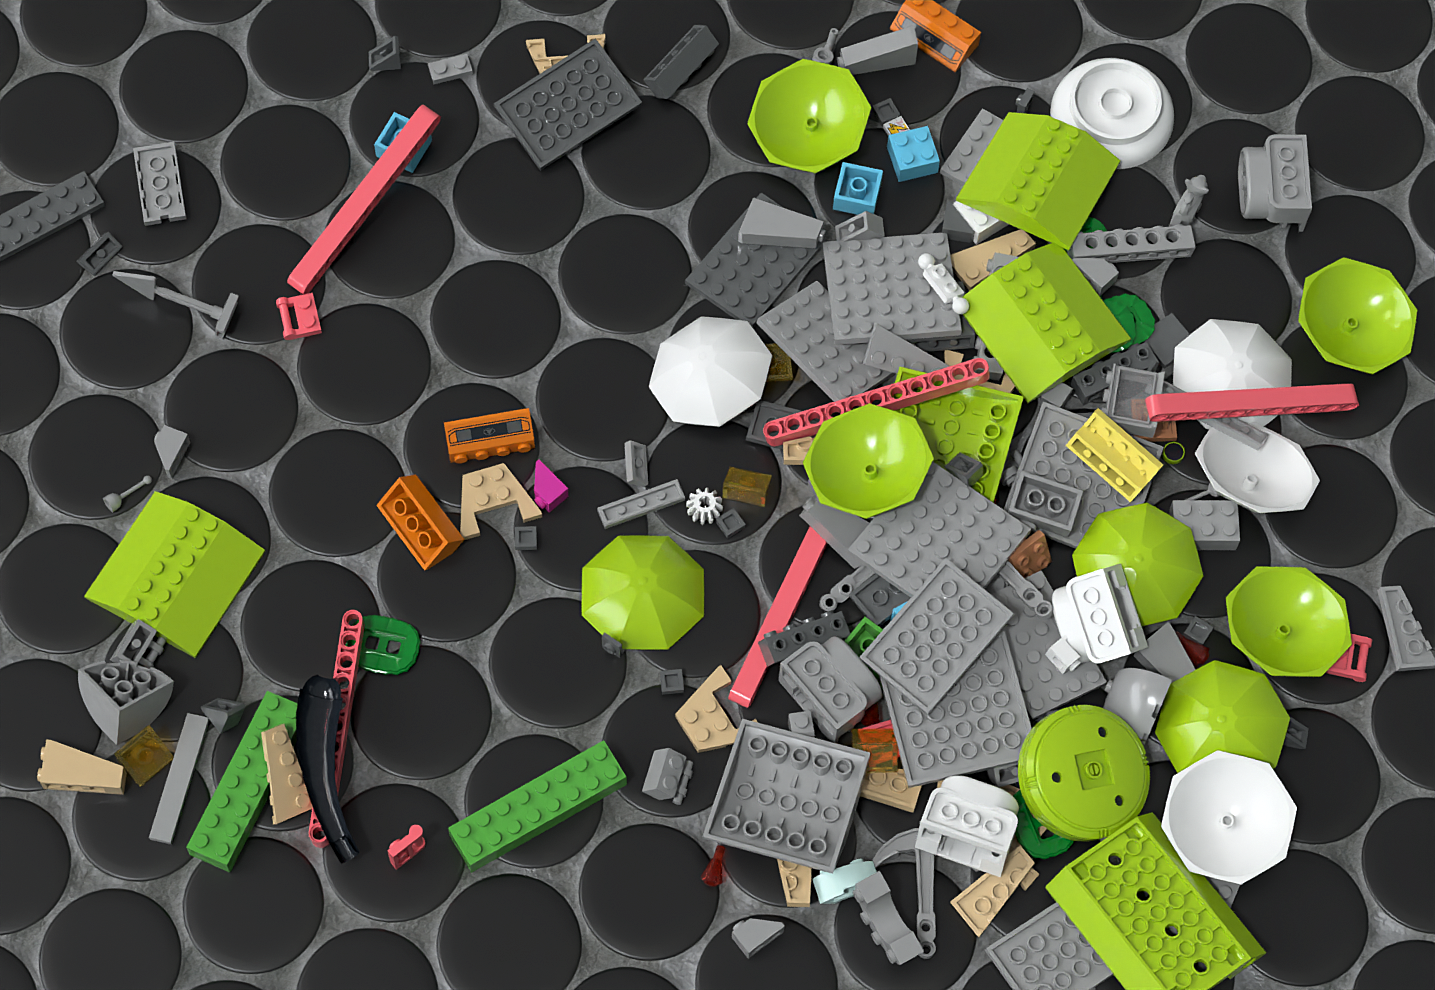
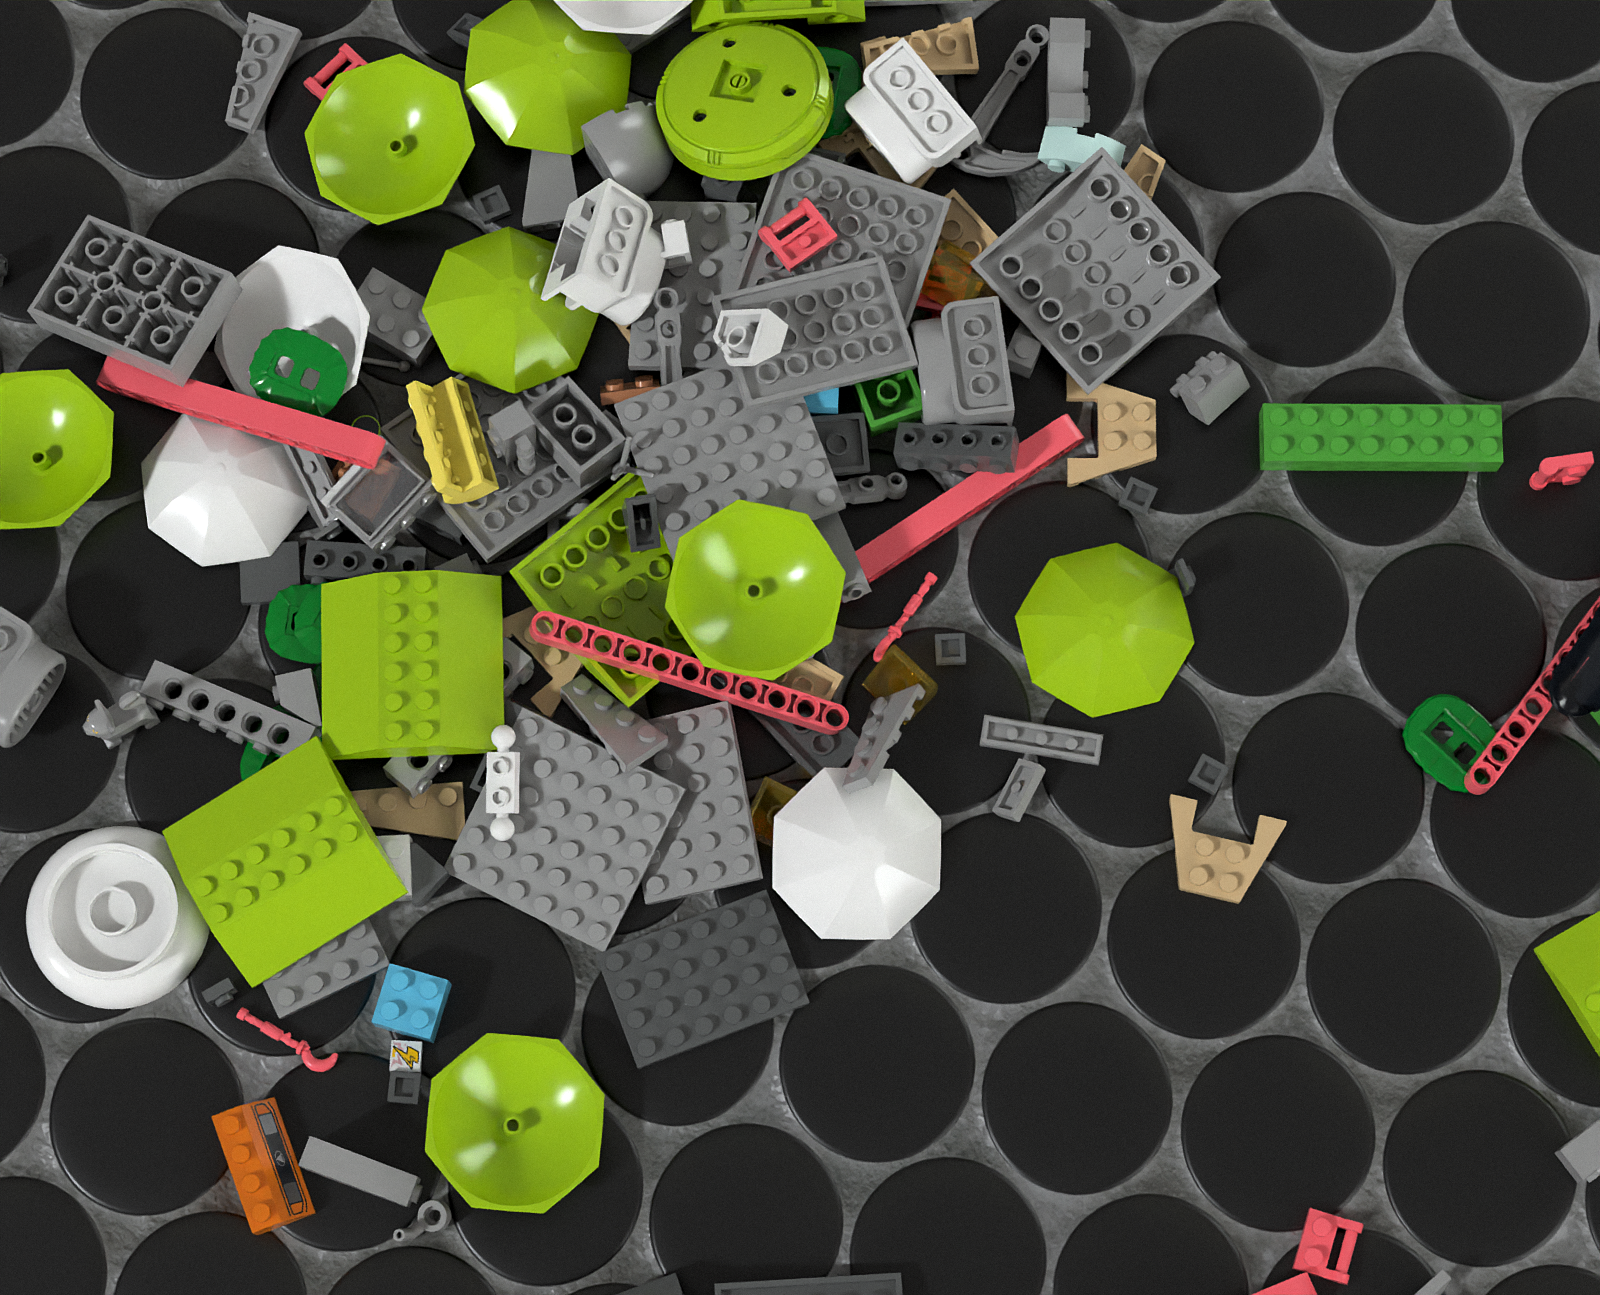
camera: 145 degrees left, 10 degrees up
(419, 521) = (1325, 869): orange slope -> none
(489, 435) = (1181, 926): orange slope -> none
(548, 488) = (1145, 820): dark pink slope -> none
(703, 498) = (980, 691): white gear -> none
(713, 873) = (1222, 251): clear red cone -> none
(739, 433) = (879, 735): none -> light grey wing
(755, 934) = (1216, 156): light grey slope -> none
(770, 541) = (909, 610): none -> coral piece
(779, 227) = (653, 996): light grey slope -> none
(857, 189) = (516, 991): medium azure brick -> none
(861, 227) = (548, 938): light grey slope -> none
(971, 592) = (749, 335): none -> white slope
(977, 101) = (302, 1048): none -> coral piece
(982, 694) = (803, 241): none -> coral plate
(1001, 501) = (624, 467): none -> light grey plant
(1076, 476) = (513, 437): none -> light grey brick
(1195, 651) = (511, 183): clear red cone -> none
(1235, 452) = (306, 352): none -> green piece
(1365, 433) = (135, 300): none -> light grey brick

